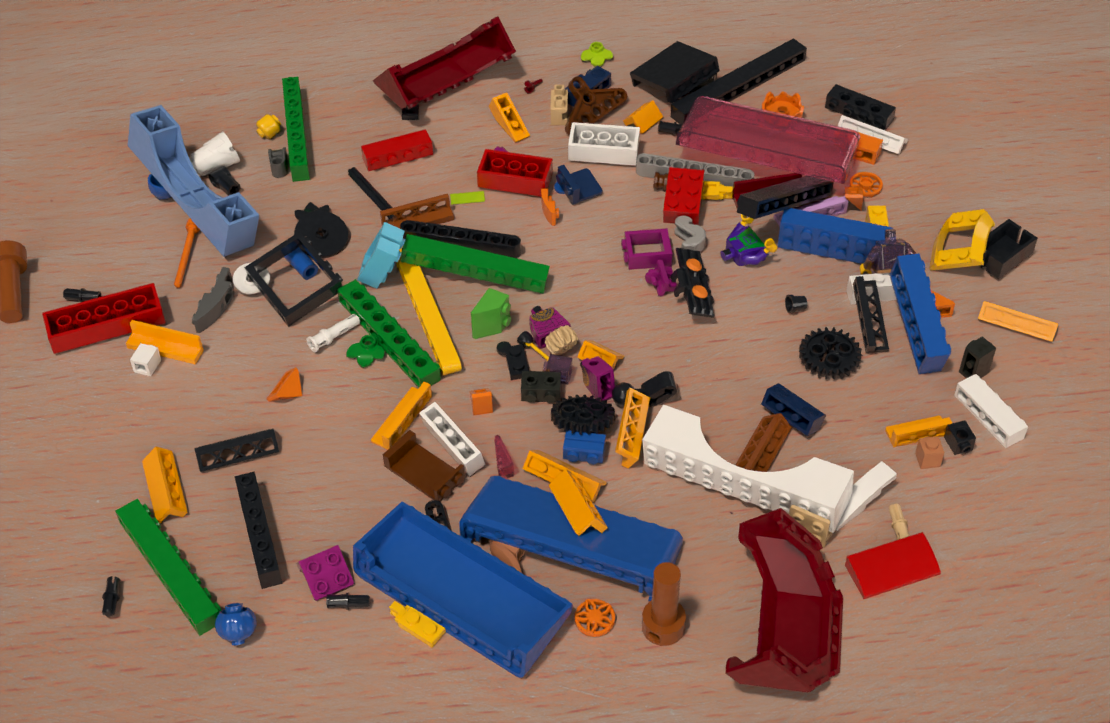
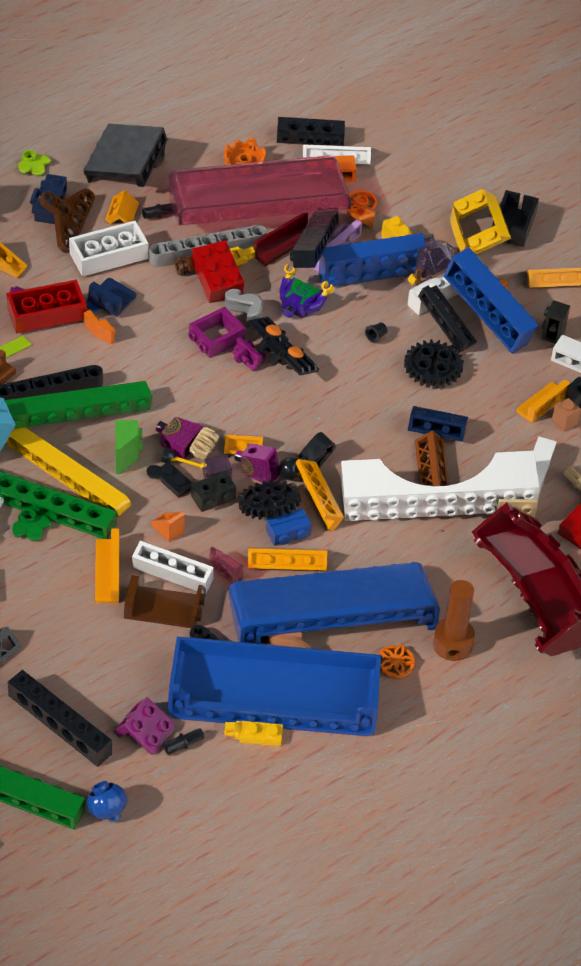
camera: 35 degrees left, 0 degrees up
(559, 105) = (38, 226): tan hips -> none
(576, 503) = (324, 574): light orange panel -> none
(744, 78) = (187, 143): black brick -> none

